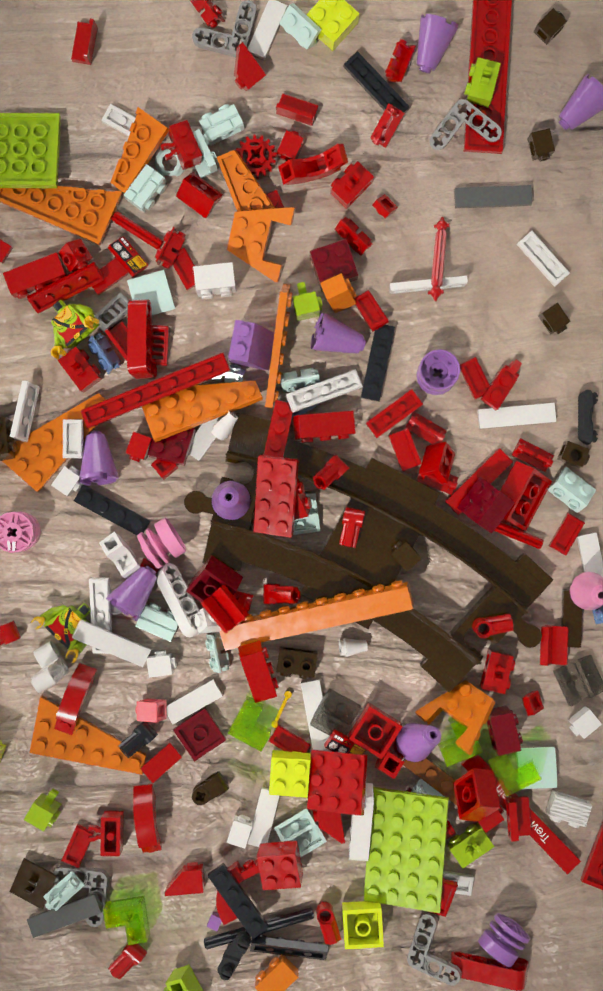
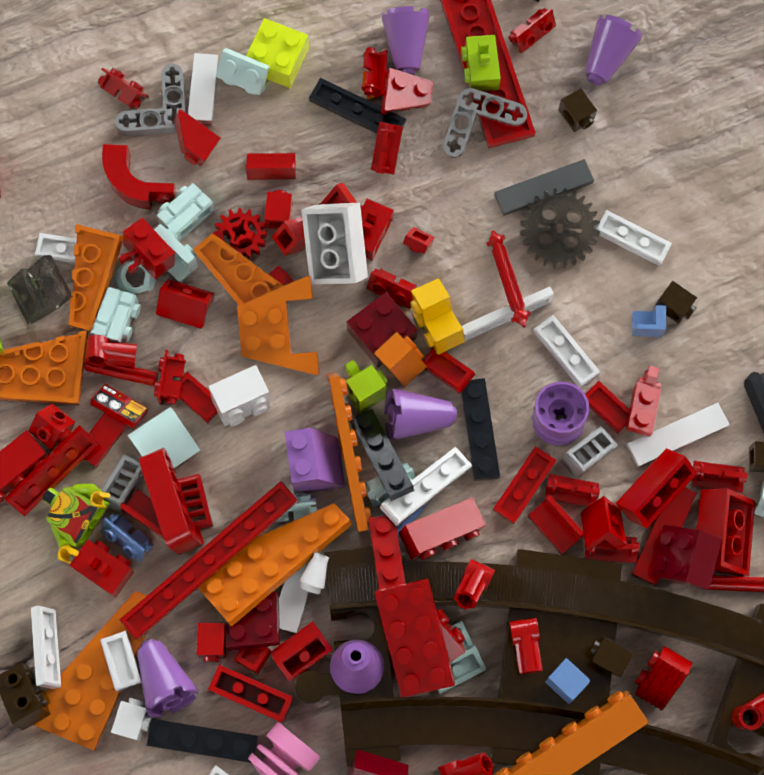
camera: 20 degrees left, 15 degrees down
(97, 148) = (39, 289): none -> clear smoke slope
(127, 212) = (103, 352): none -> red piece
(153, 492) = (251, 694): none -> red brick
(182, 72) = (130, 189): none -> red arch
(197, 475) = (301, 651): none -> red brick
(300, 357) = (382, 455): none -> black plate
(321, 189) = (334, 243): none -> white brick
(370, 561) = (567, 681): none -> medium blue panel
(375, 266) = (435, 316): none -> yellow brick
(417, 85) = (405, 91): none -> wing
(433, 409) = (577, 463): none -> light grey slope
(436, 580) = (662, 678): none -> red brick
(461, 327) = (566, 351): none -> white tile
(485, 449) = (656, 488): none -> red brick
(500, 216) = (562, 206): none -> clear smoke gear
(529, 327) = (649, 322): none -> medium blue panel
(540, 64) = (539, 25): none -> red hinge

